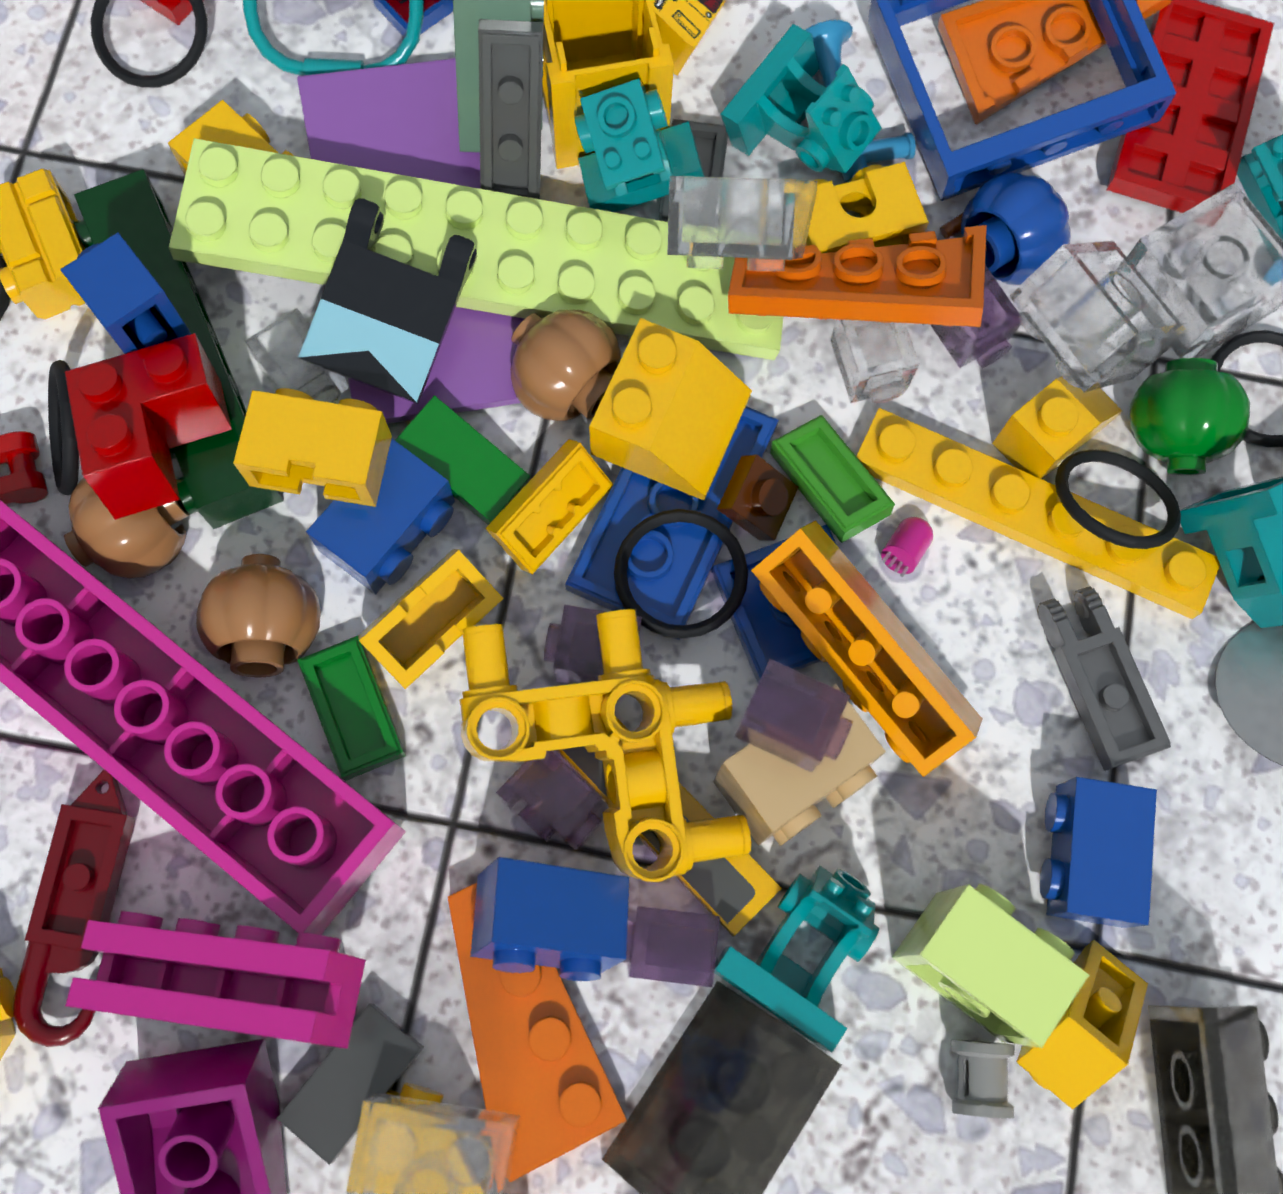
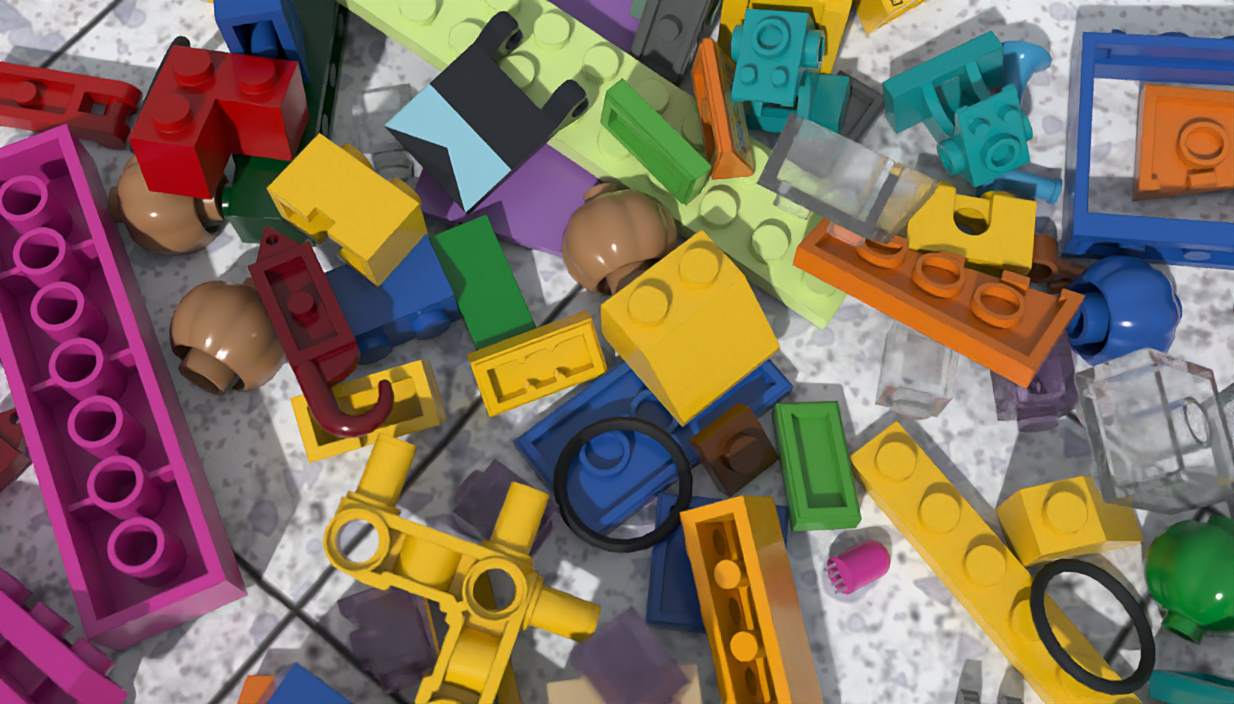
camera: 30 degrees right, 5 degrees down
(345, 570) = (313, 332): none -> dark red plate
(351, 708) = (263, 461): green tile -> none
(555, 259) = (654, 142): none -> bright green tile
(595, 207) = (721, 121): none -> orange slope
(938, 212) = (1047, 264): none -> dark orange hand

